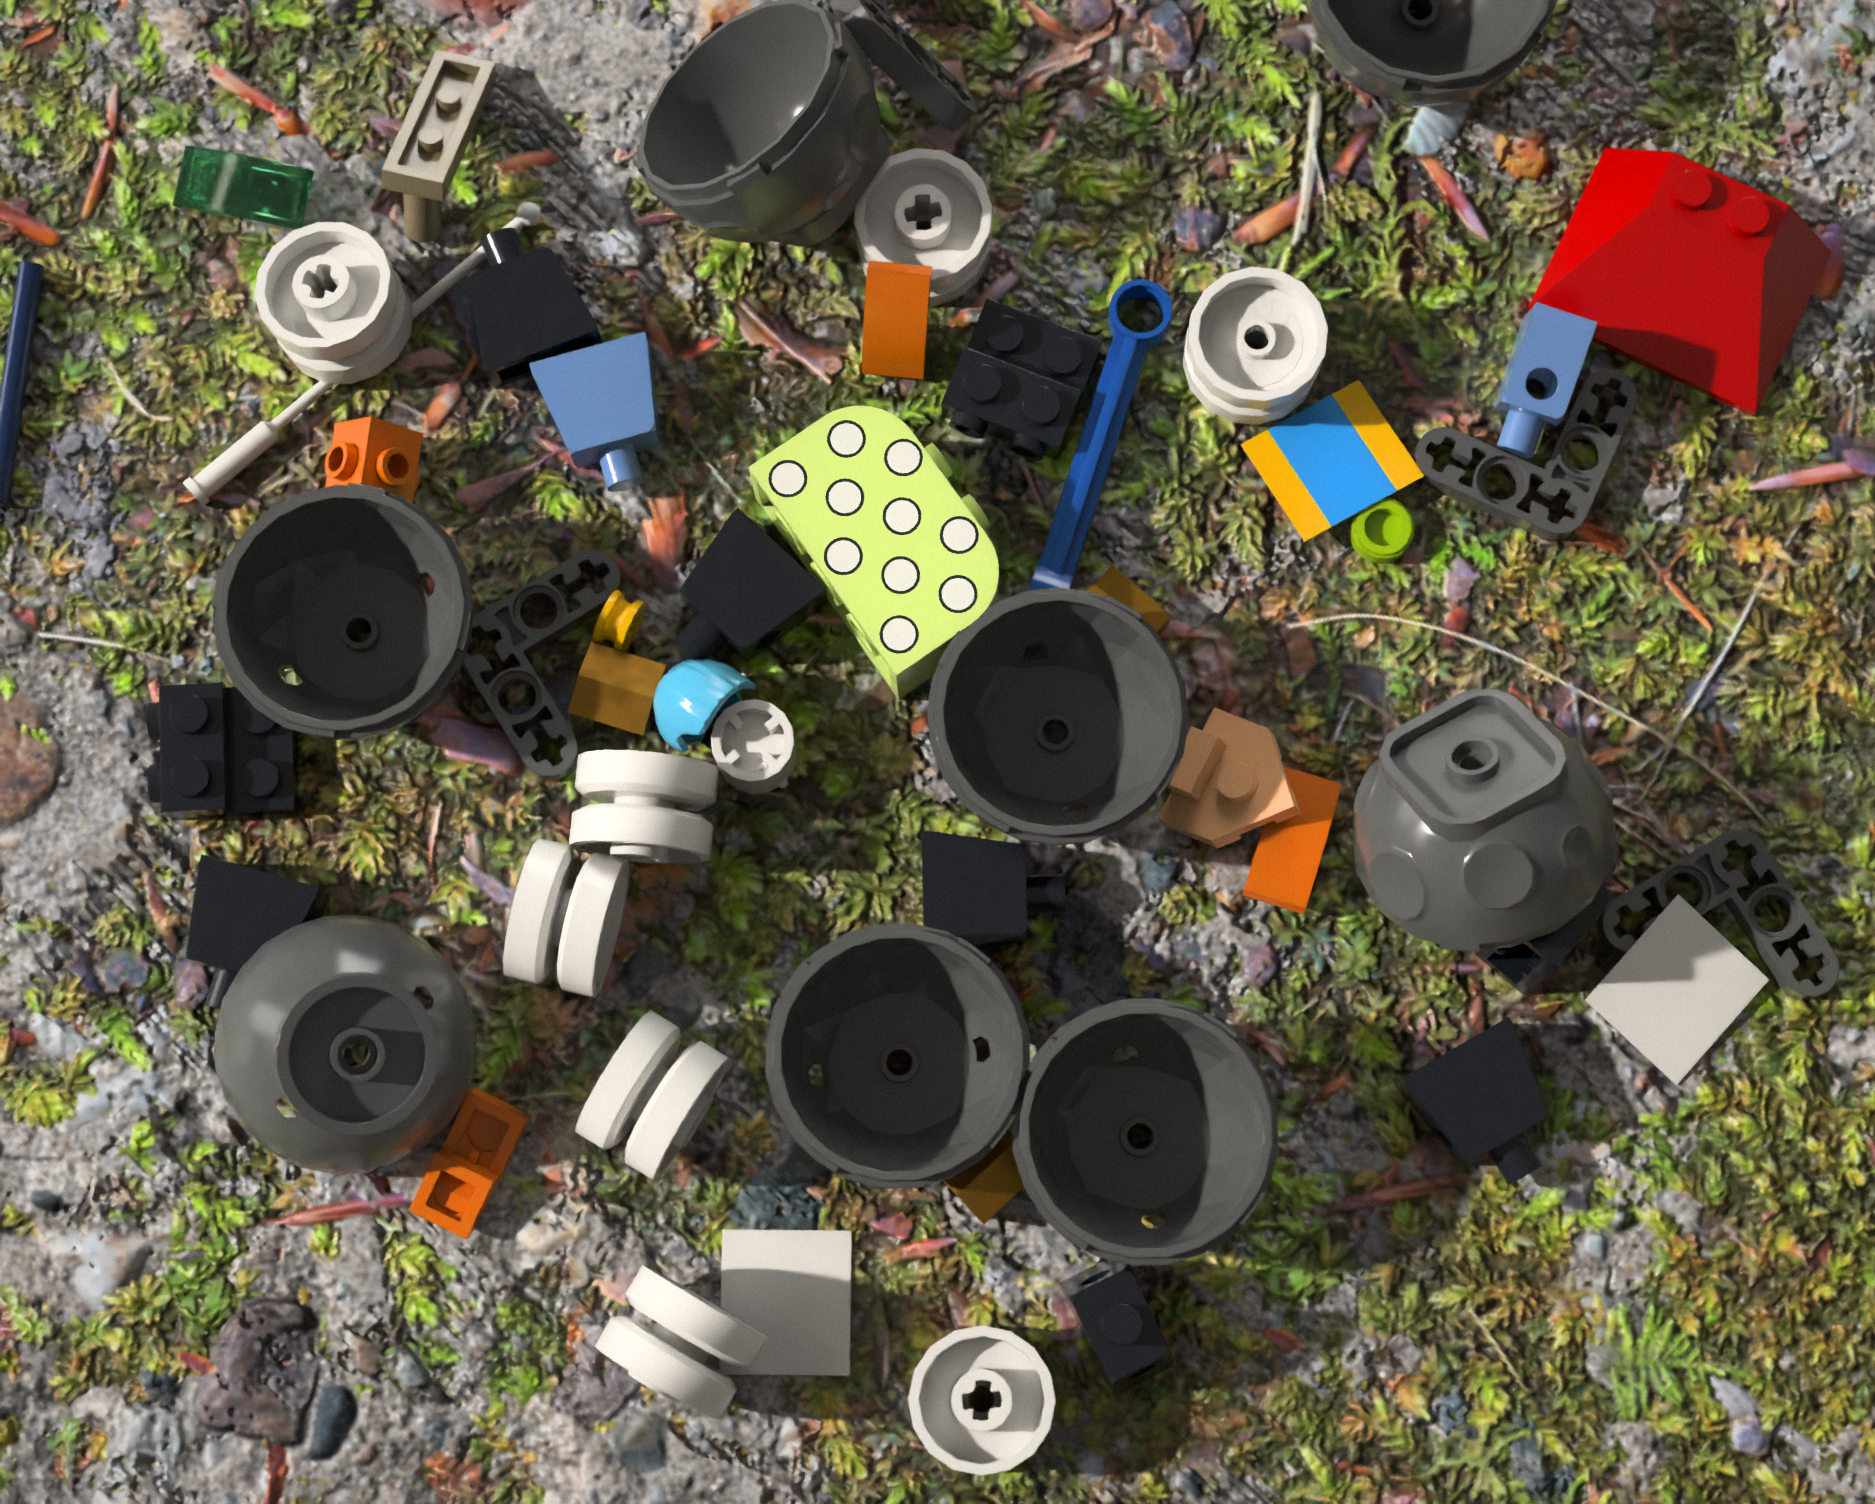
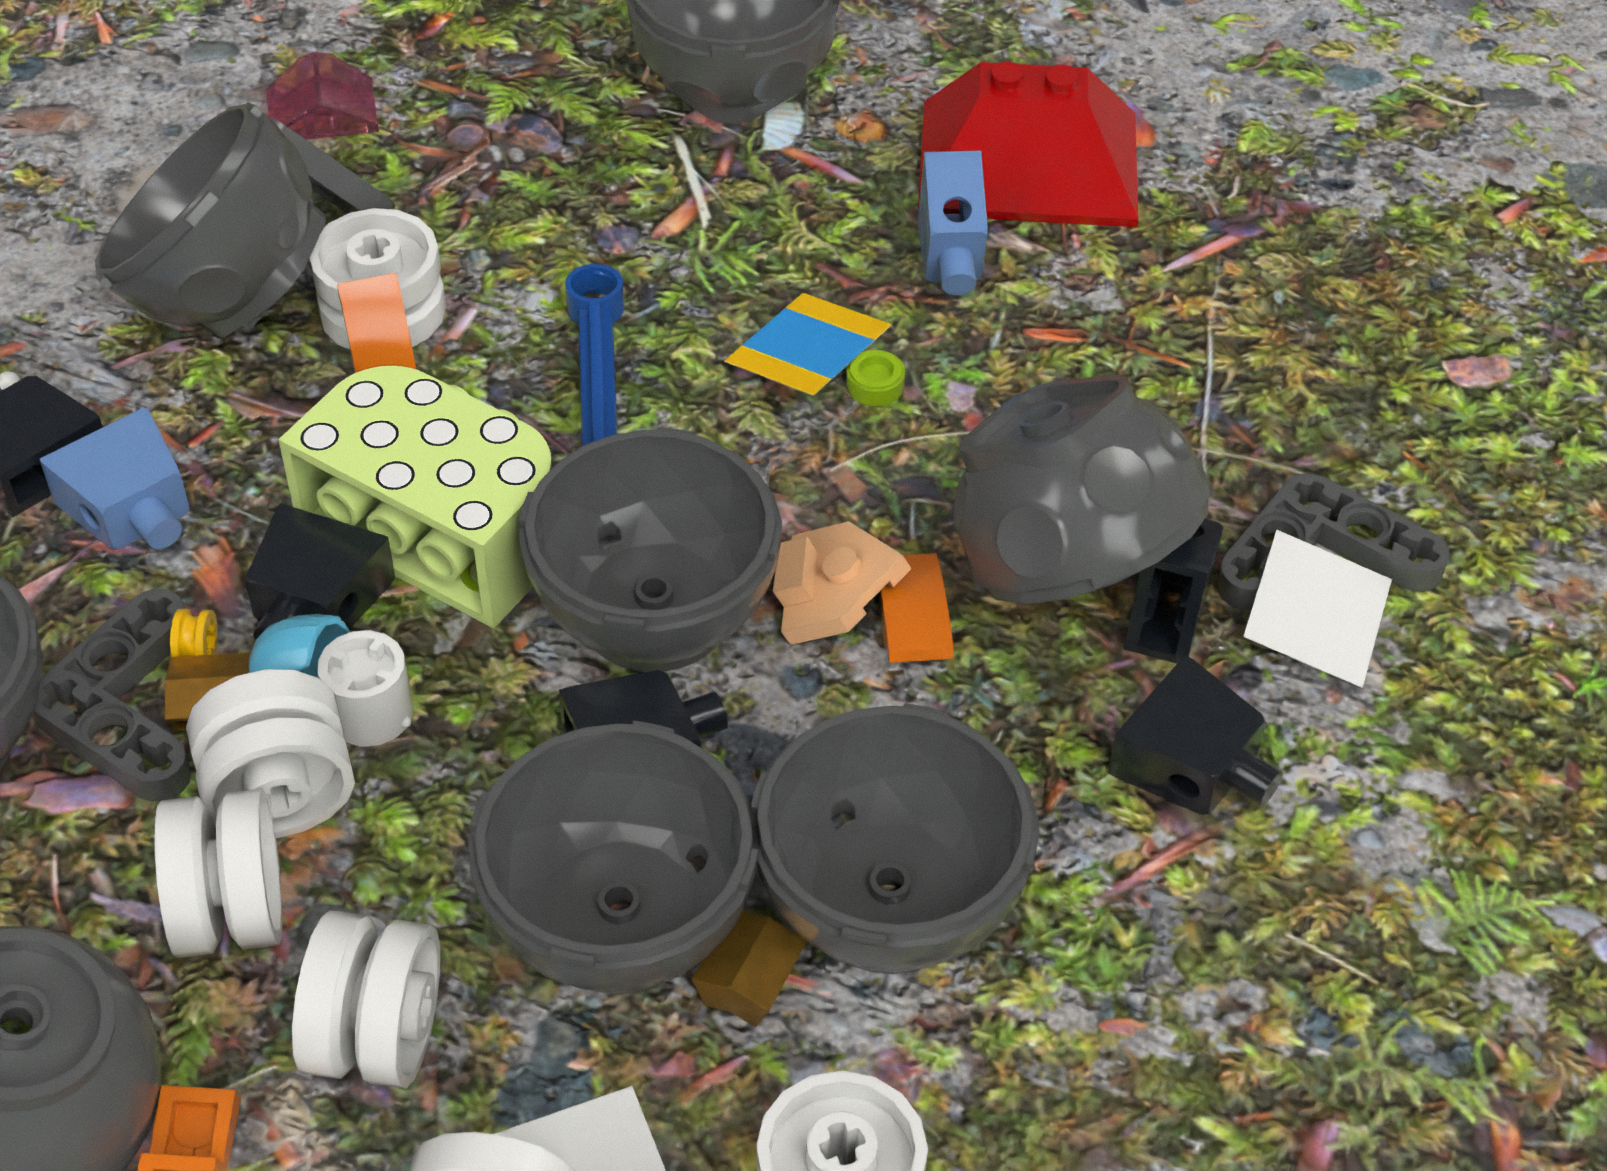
camera: 25 degrees left, 30 degrees down
(1020, 381) = (513, 363): black plate -> none
(1117, 1324) = (953, 1049): black torso -> none
(1263, 310) = (703, 274): white wheel -> none
(1556, 477) = (999, 303): dark grey beam -> none

